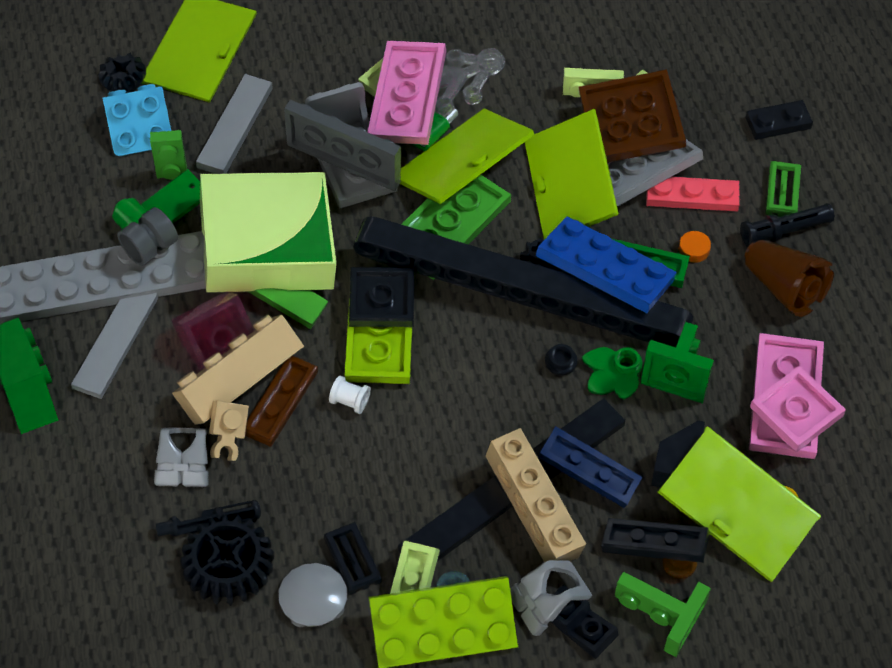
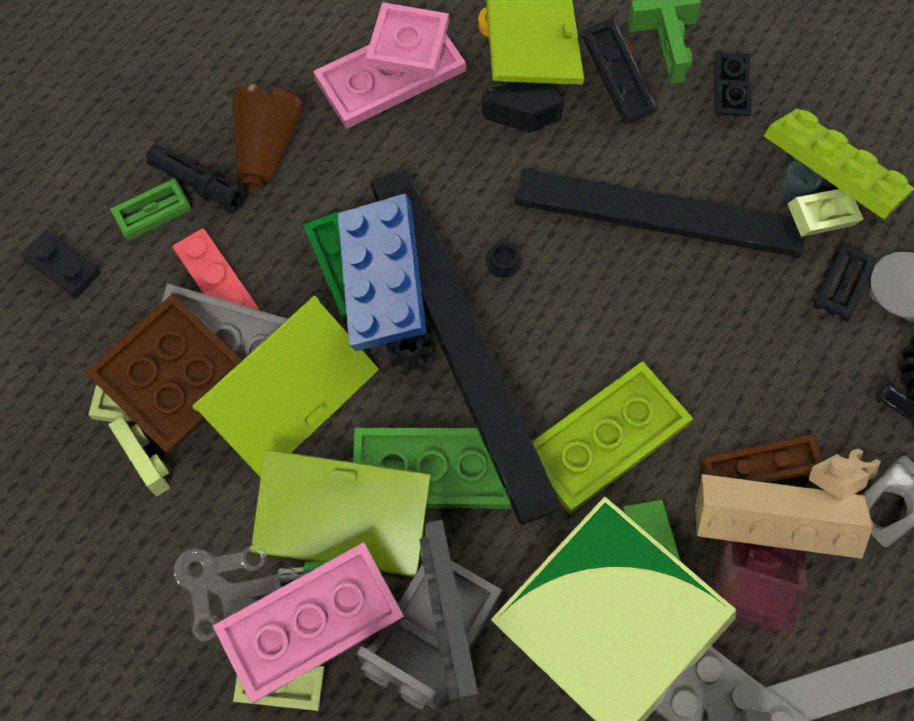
camera: 125 degrees left, 10 degrees up
(349, 394) = (704, 402): white bush -> none
(381, 297) = (584, 449): black tile -> none
(534, 497) = (671, 169): tan brick -> none
(539, 606) = (749, 121): light grey piece -> none
(590, 467) = (598, 158): dark blue plate -> none
(609, 372) = (483, 212): green plate -> none
(678, 368) = (438, 147): green bracket -> none
(695, 245) = (281, 238): orange tile -> none

